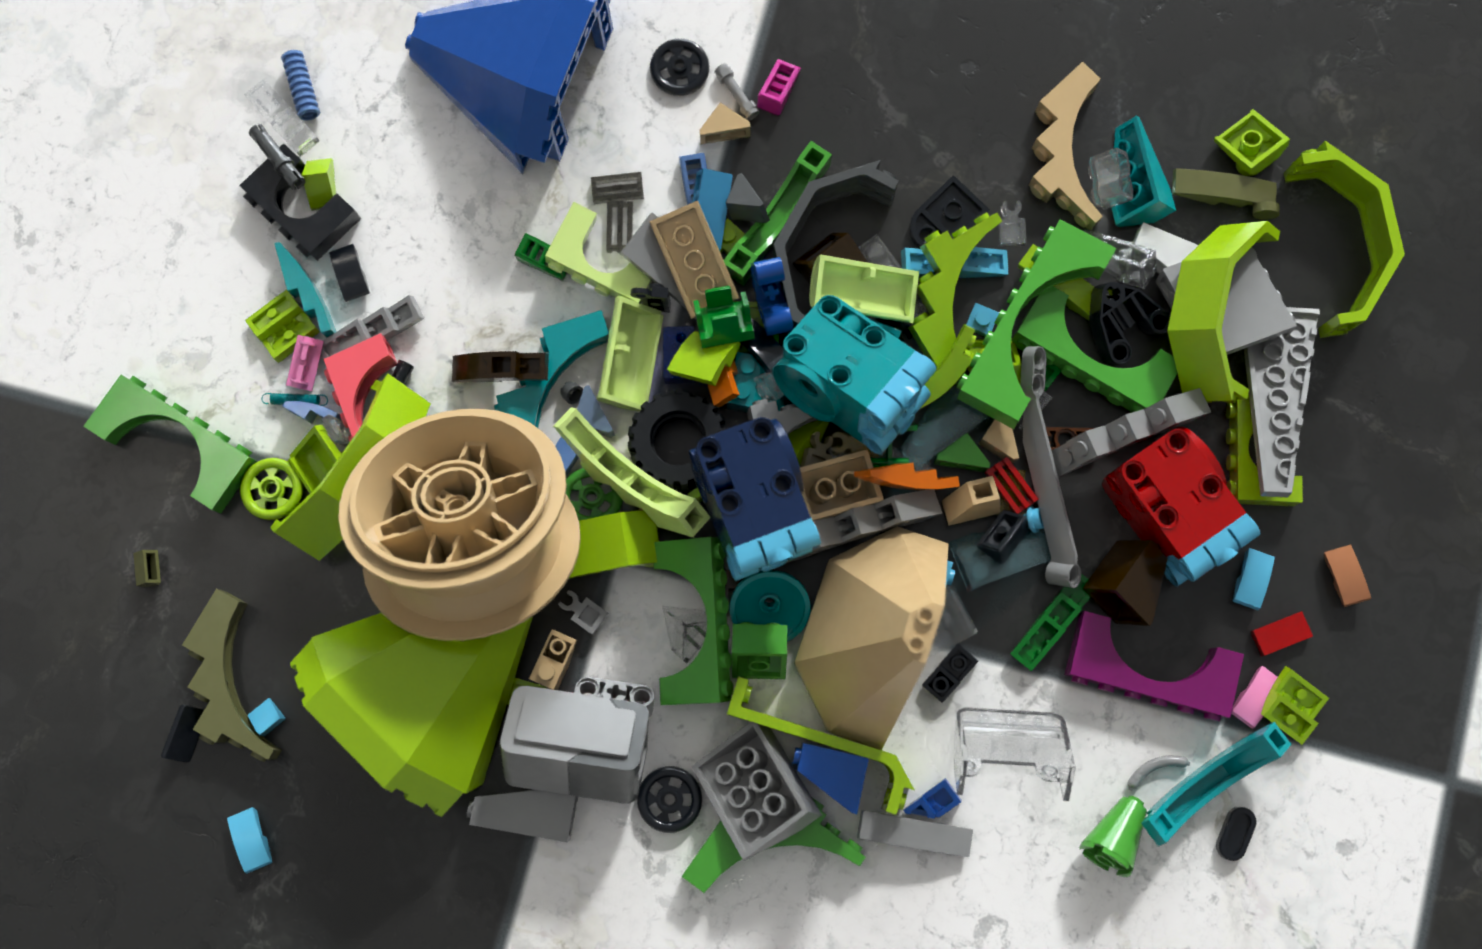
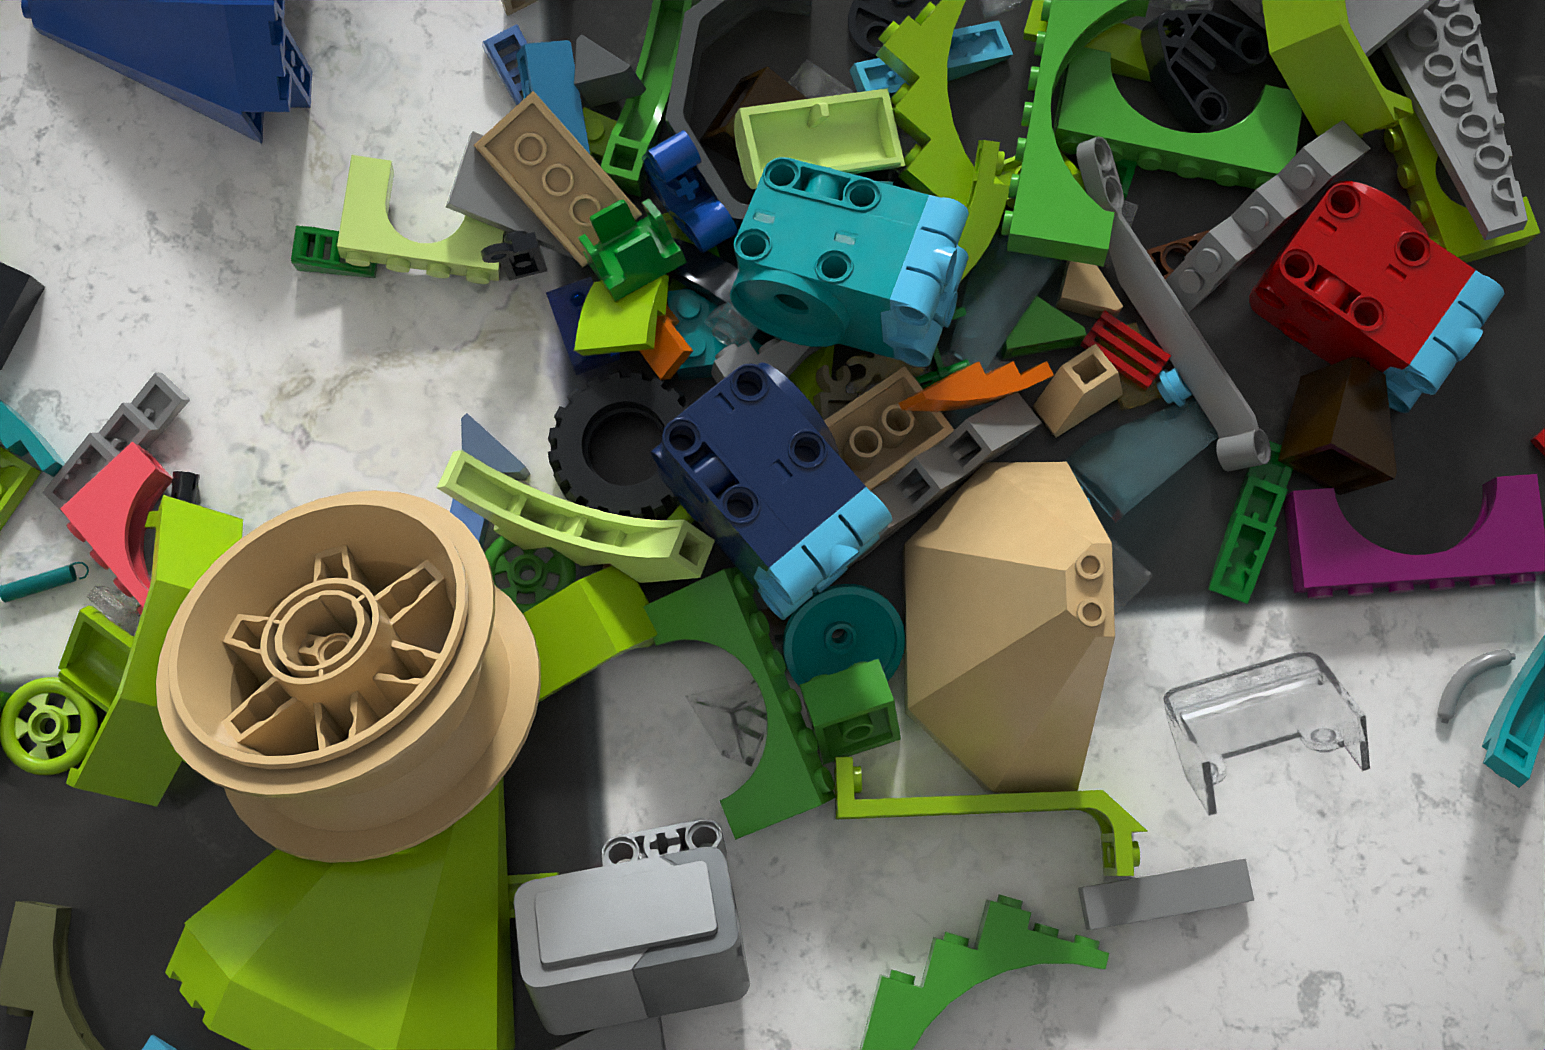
camera: 20 degrees left, 0 degrees up
(304, 363) = (34, 524): bright pink hinge -> none
(309, 411) = (63, 592): medium blue slope -> none
(349, 272) = (54, 371): black slope -> none
(500, 367) = (326, 431): dark brown slope -> none
(553, 660) = (556, 829): tan slope -> none
(565, 344) = (411, 366): teal arch -> none
(575, 396) = (452, 436): dark grey hinge -> none
(586, 614) = (580, 747): light grey plate -> none
(620, 204) = (421, 140): clear smoke tile -> none
(626, 196) = (413, 130): clear smoke tile -> none
(630, 355) = (512, 350): yellowish green container -> none
(646, 799) = (830, 982): black plate -> none
(755, 790) = (917, 913): light grey slope -> none
(834, 772) = (1020, 848): blue slope -> none
(935, 801) = (1177, 837): blue slope -> none
(950, 672) = (1134, 646): black slope -> none
(982, 319) = (1000, 127): medium azure plate -> none
(1003, 536) = (1141, 424): black slope -> none
(1117, 837) = (1453, 796): bright green cone -> none
(1254, 579) = (1511, 365): medium azure slope -> none

